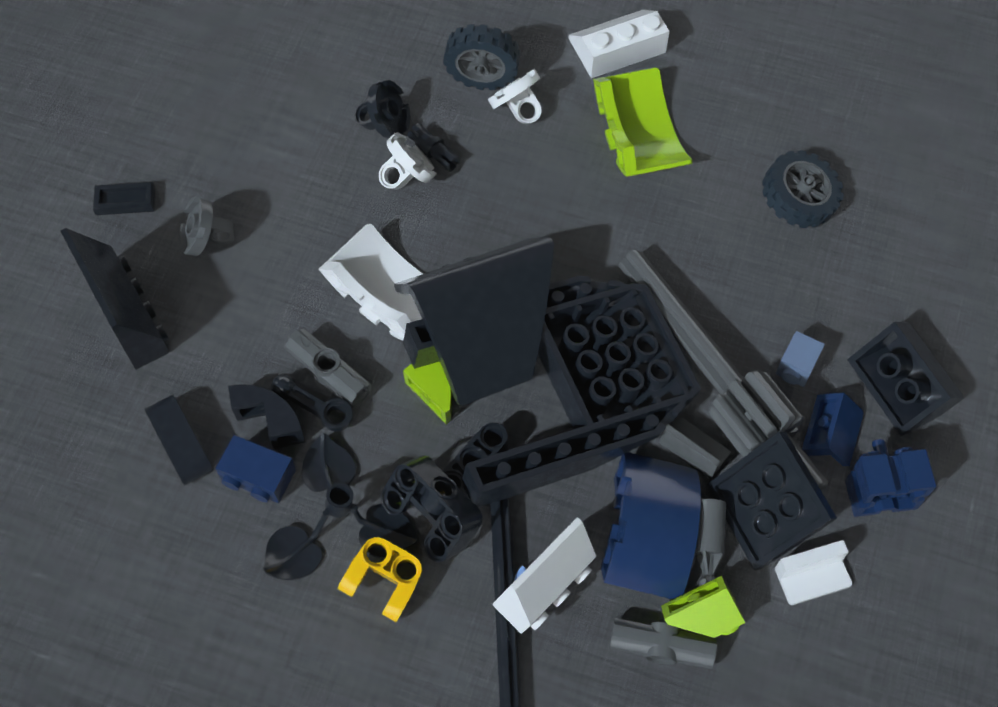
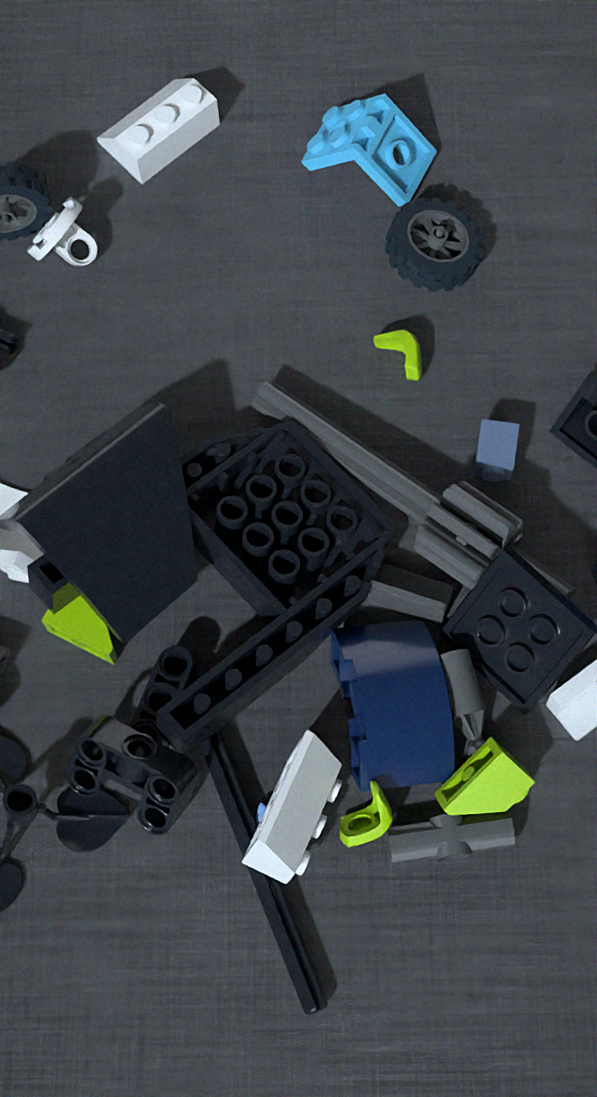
camera: 15 degrees left, 5 degrees up
(386, 569) = (105, 863): yellow piece -> none
(602, 609) = (367, 823): none -> lime hair
(639, 122) = (218, 223): lime panel -> none
(753, 255) = (407, 343): none -> lime hair
(778, 92) = (368, 135): none -> medium azure bracket
(833, 427) = (559, 518): dark blue panel -> none

